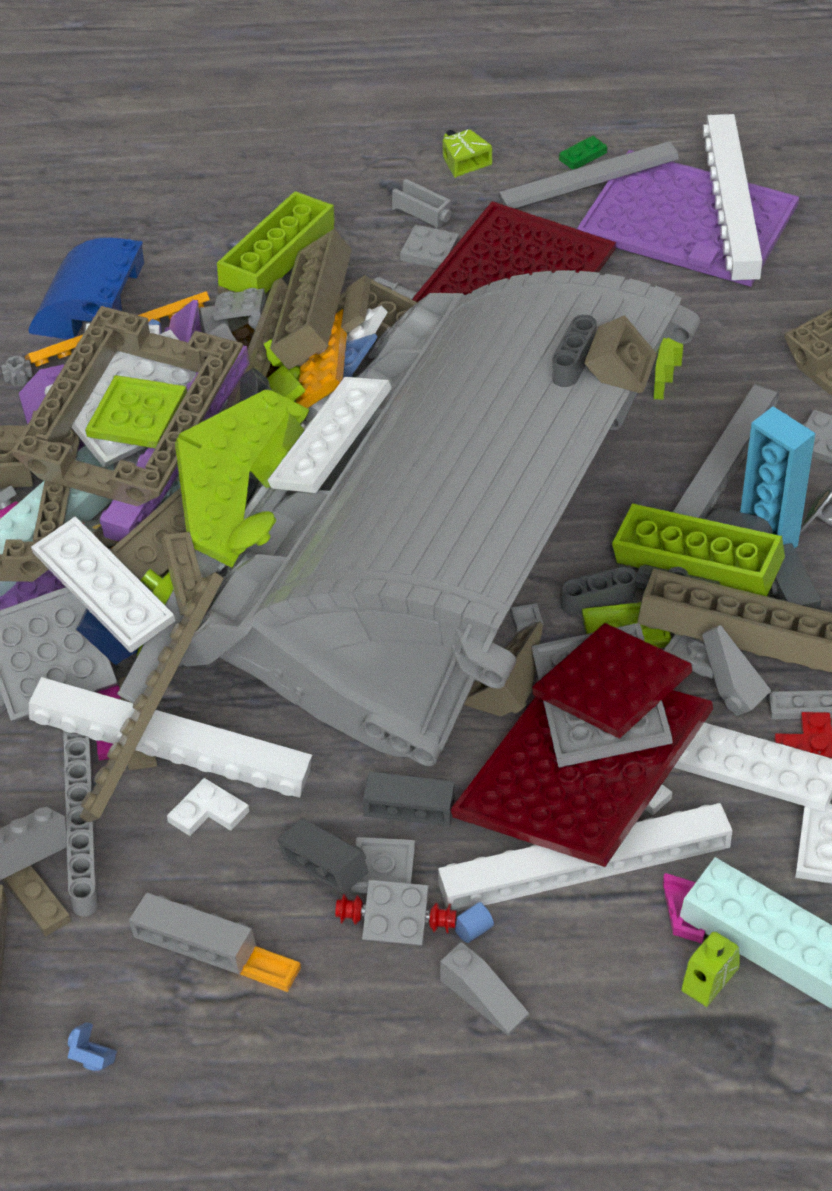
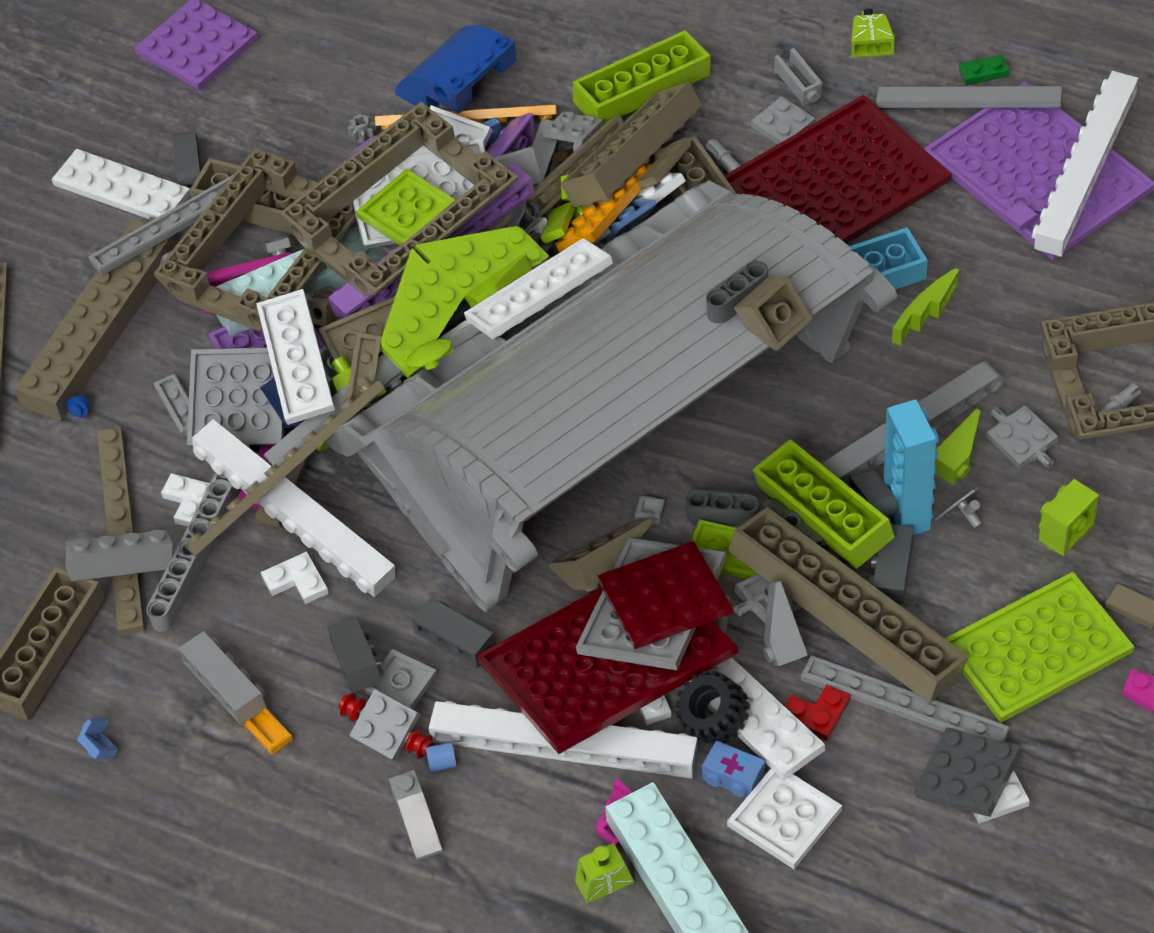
camera: 30 degrees right, 5 degrees up
(40, 766) = (187, 492): none -> white plate
(708, 749) = (725, 720): none -> black tyre
(769, 822) = (732, 769): none -> medium blue brick

